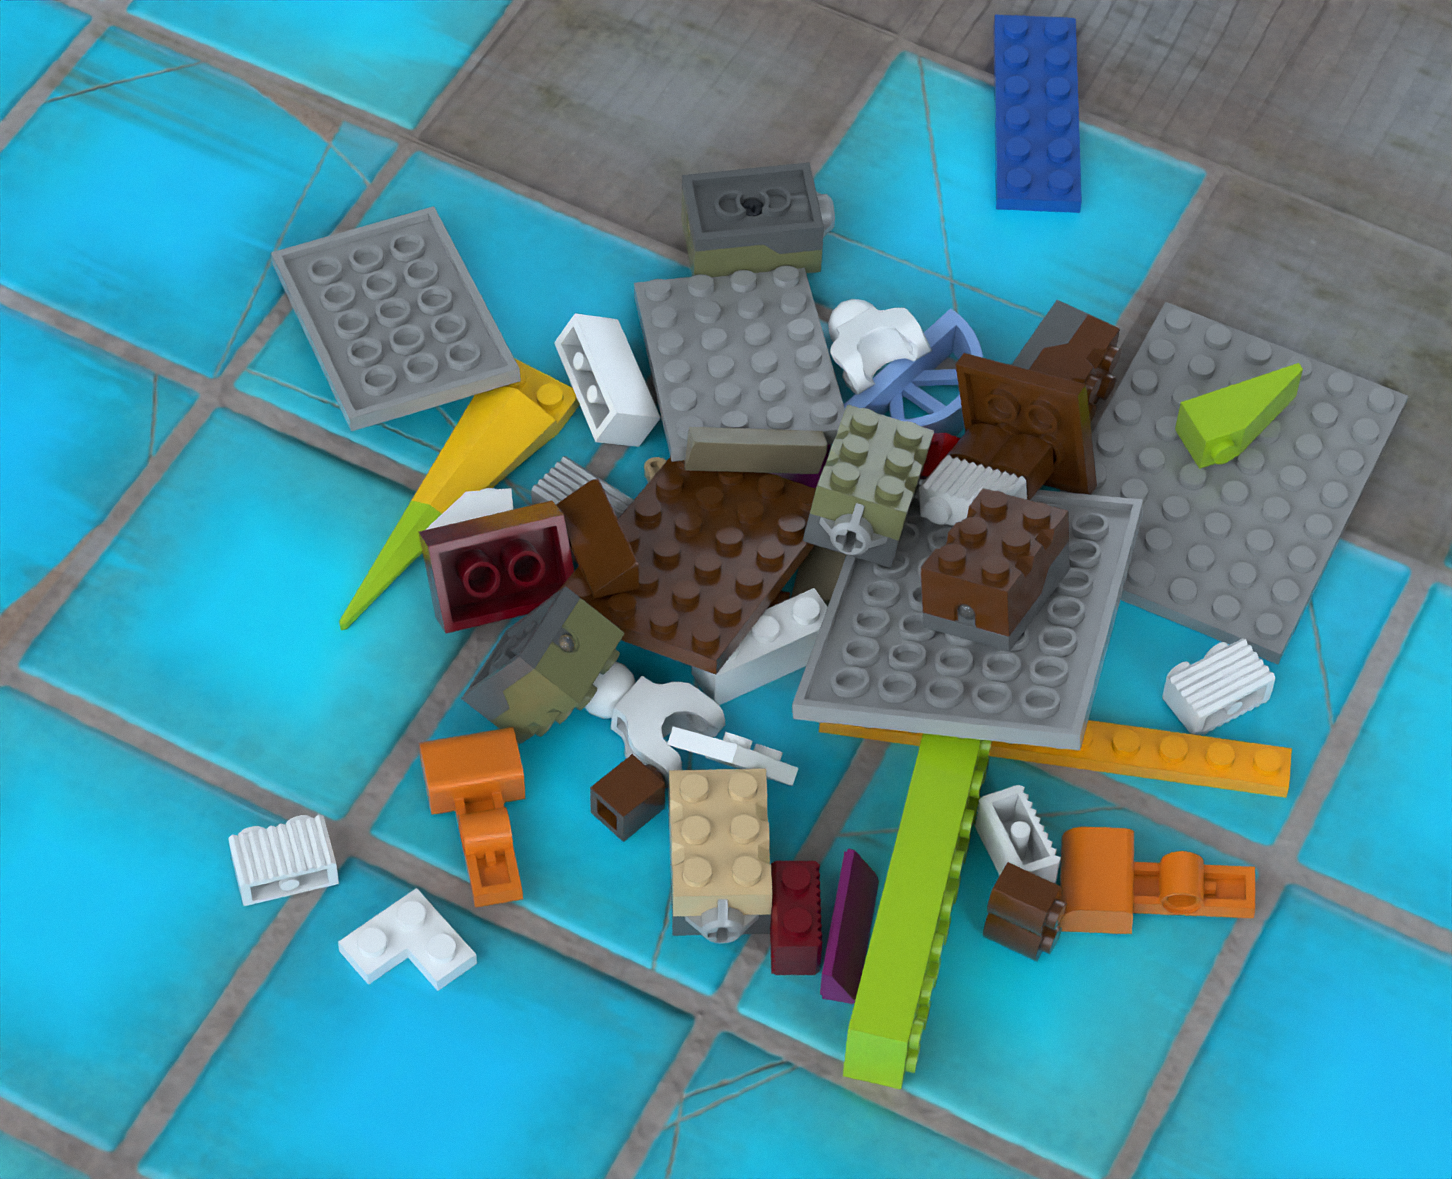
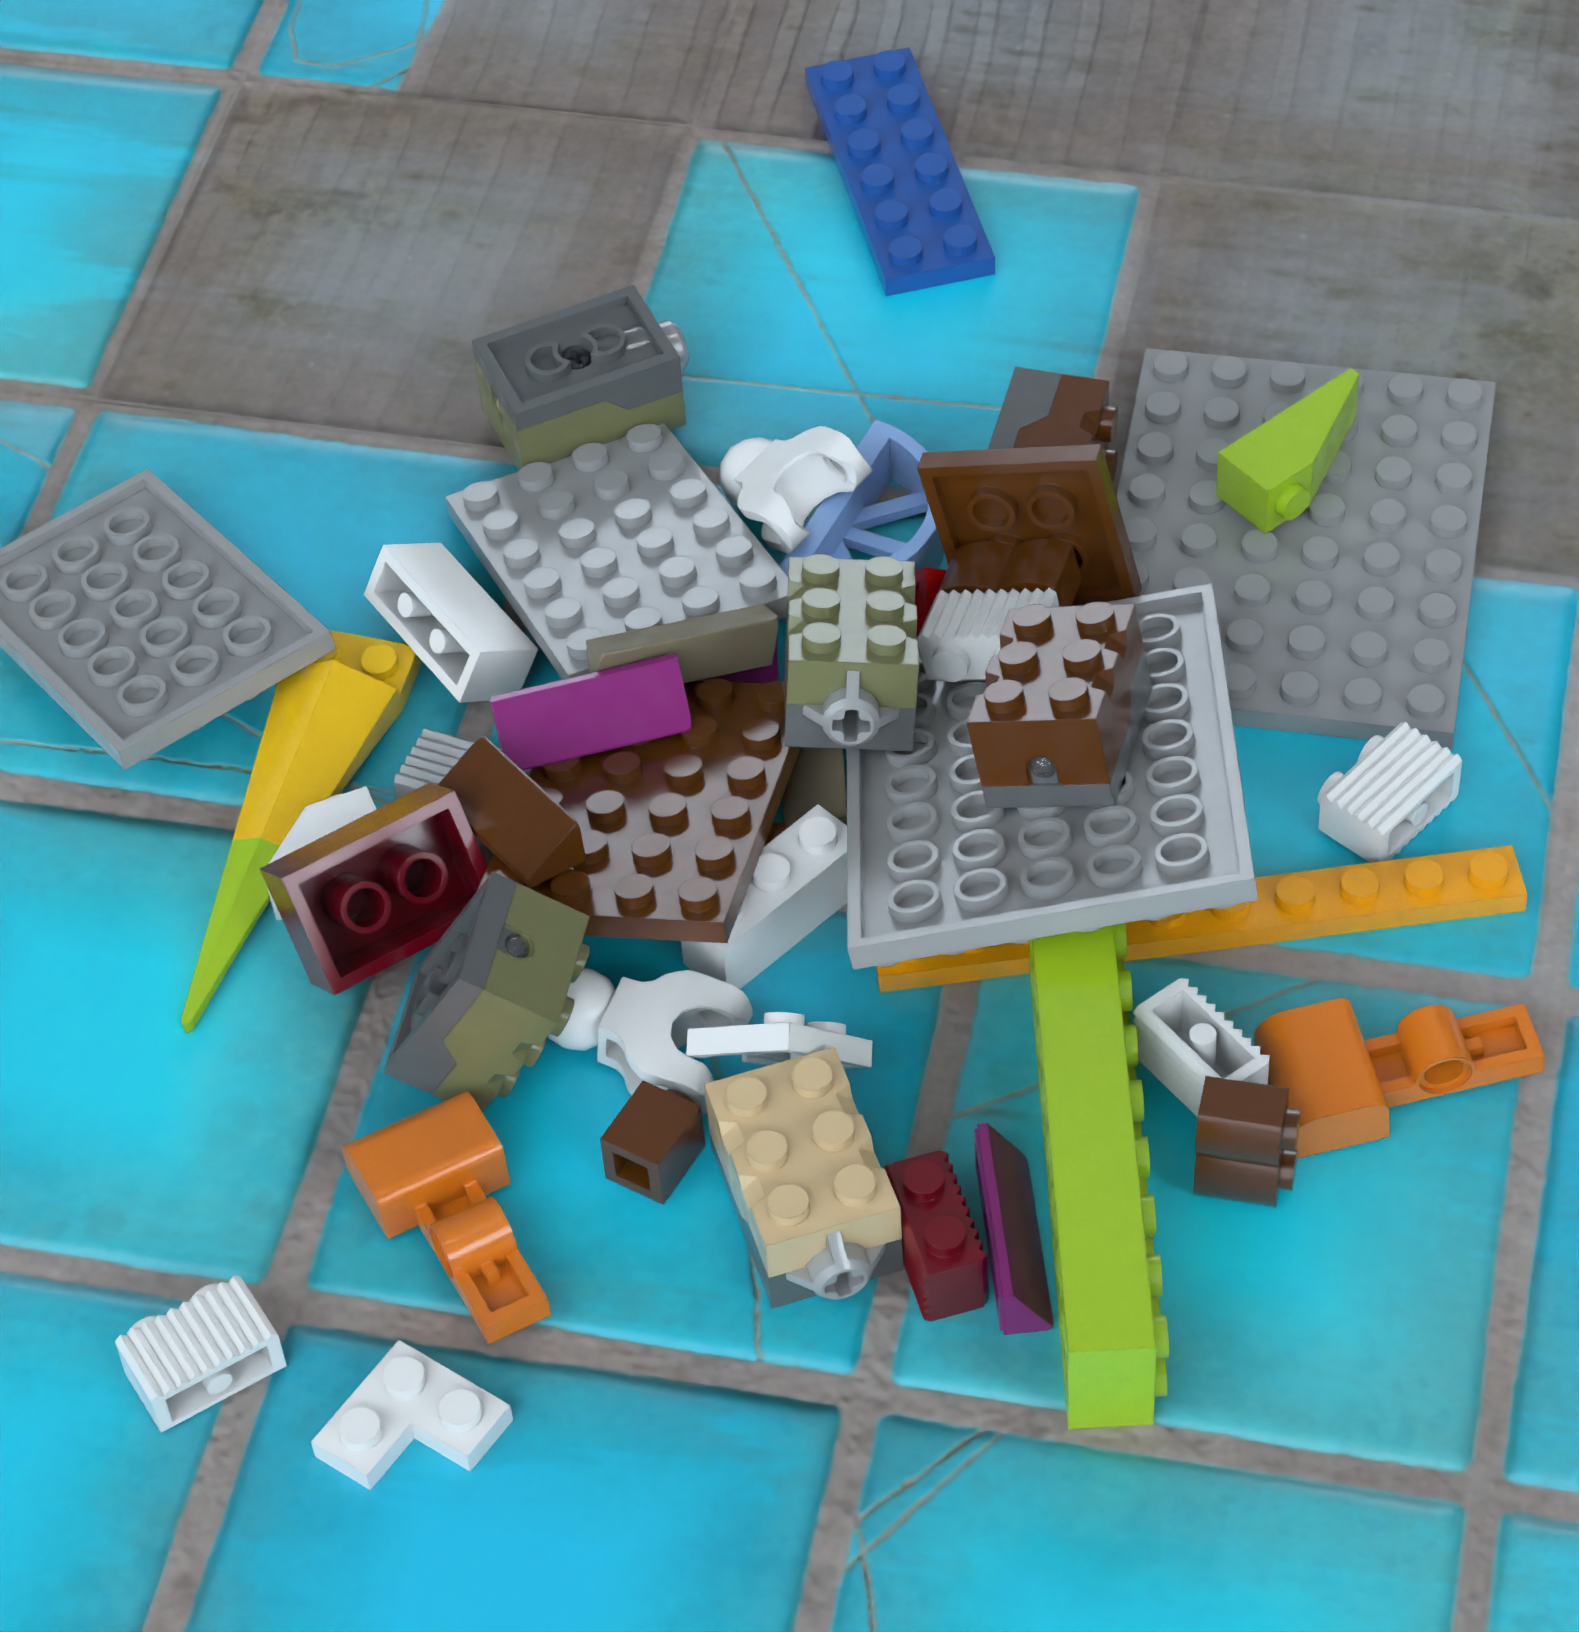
camera: 10 degrees left, 5 degrees down
(678, 480) = (592, 712): none -> magenta slope

